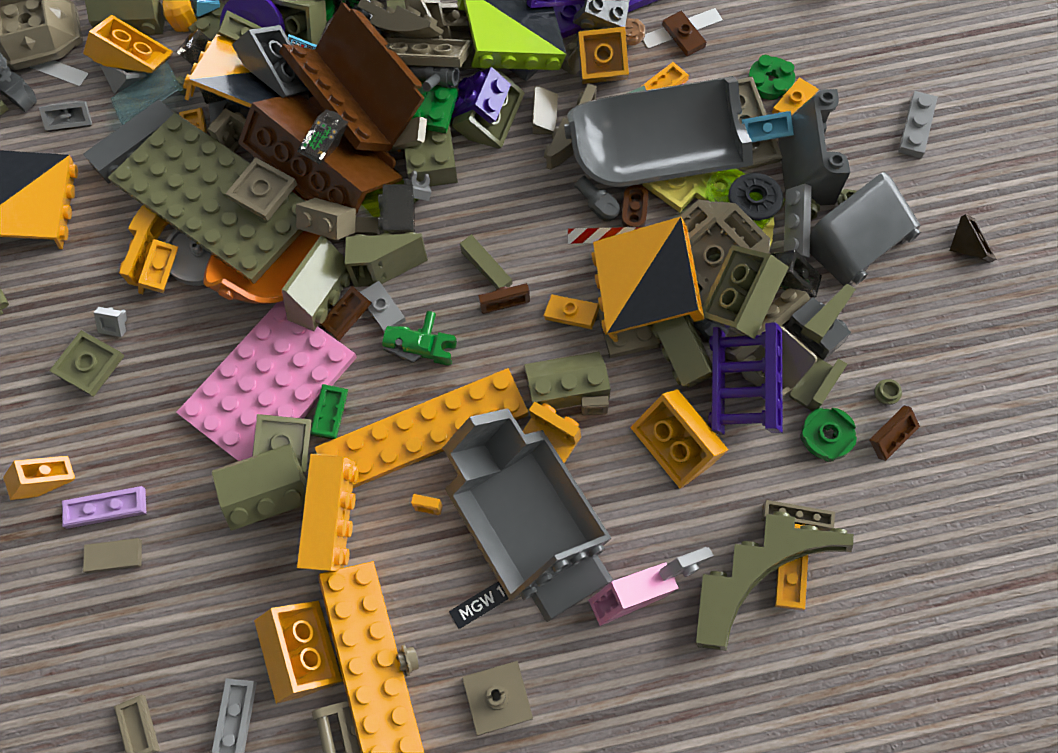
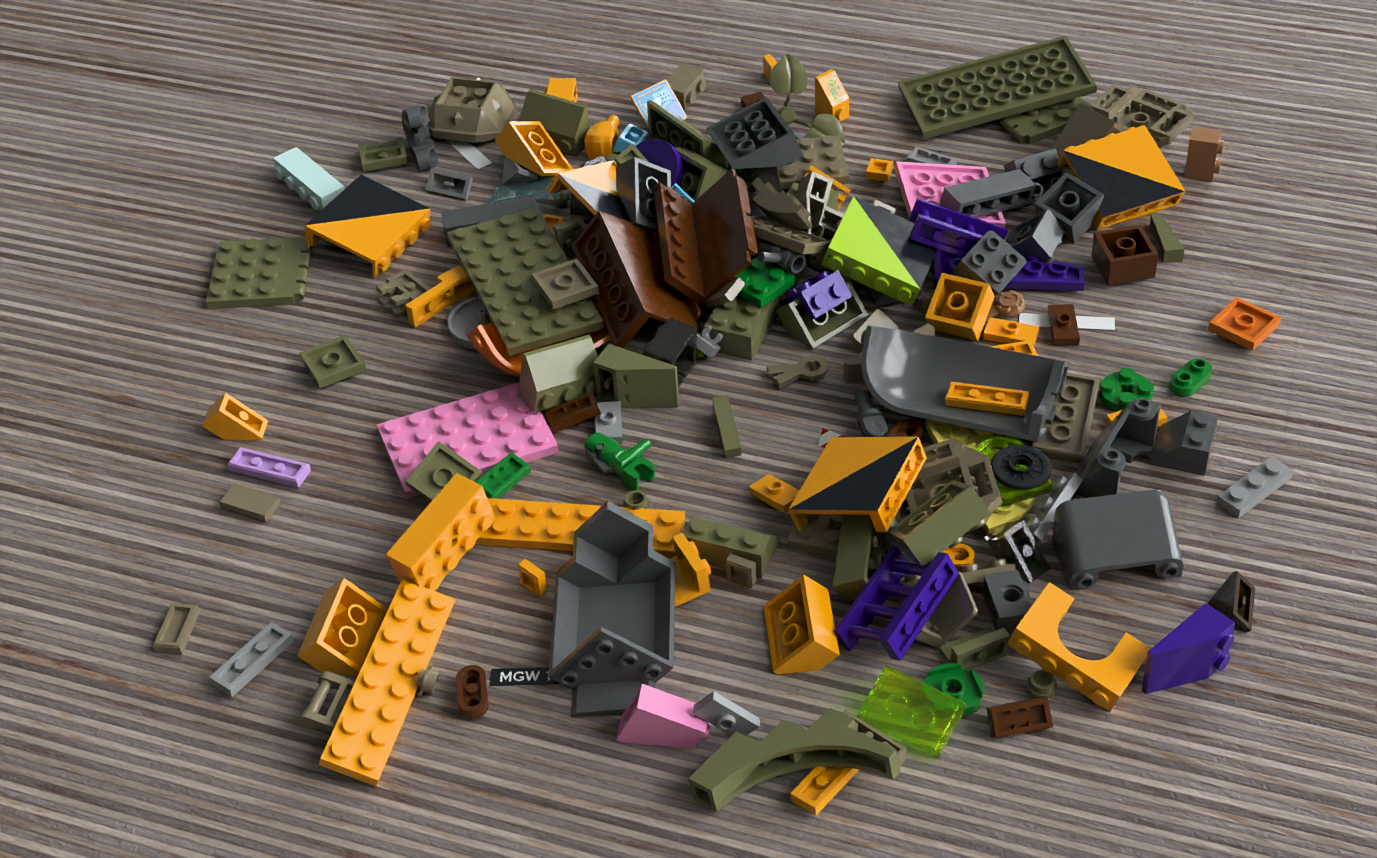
camera: 30 degrees right, 25 degrees down
(104, 248) = (405, 286): none -> dark tan plate
(110, 321) = (373, 339): light grey tile -> none
(157, 267) = (439, 314): light orange panel -> none
(260, 487) = (397, 494): olive slope -> none
(323, 136) = (641, 257): clear smoke slope -> none
(325, 218) = (602, 325): dark tan brick -> none
(452, 649) = (472, 697): none -> reddish brown plate
(460, 373) = (636, 500): none -> olive plate
(497, 698) = (483, 748): dark tan tile -> none
(504, 298) = (722, 457): reddish brown plate -> none
(514, 169) = (809, 367): none -> dark tan piece
(649, 59) = (1009, 331): none -> light orange plate
(682, 138) = (987, 398): none -> light orange tile
(769, 126) = (1080, 419): medium azure slope -> none
(808, 41) = (1190, 377): none -> green plate
(815, 473) = (912, 711): none -> clear neon green tile
(823, 320) = (1017, 585): olive piece -> none
(856, 108) = (1186, 442): none -> dark grey slope
(874, 356) = (1097, 679): none -> light orange arch
(983, 302) = (1190, 651): none -> dark purple slope

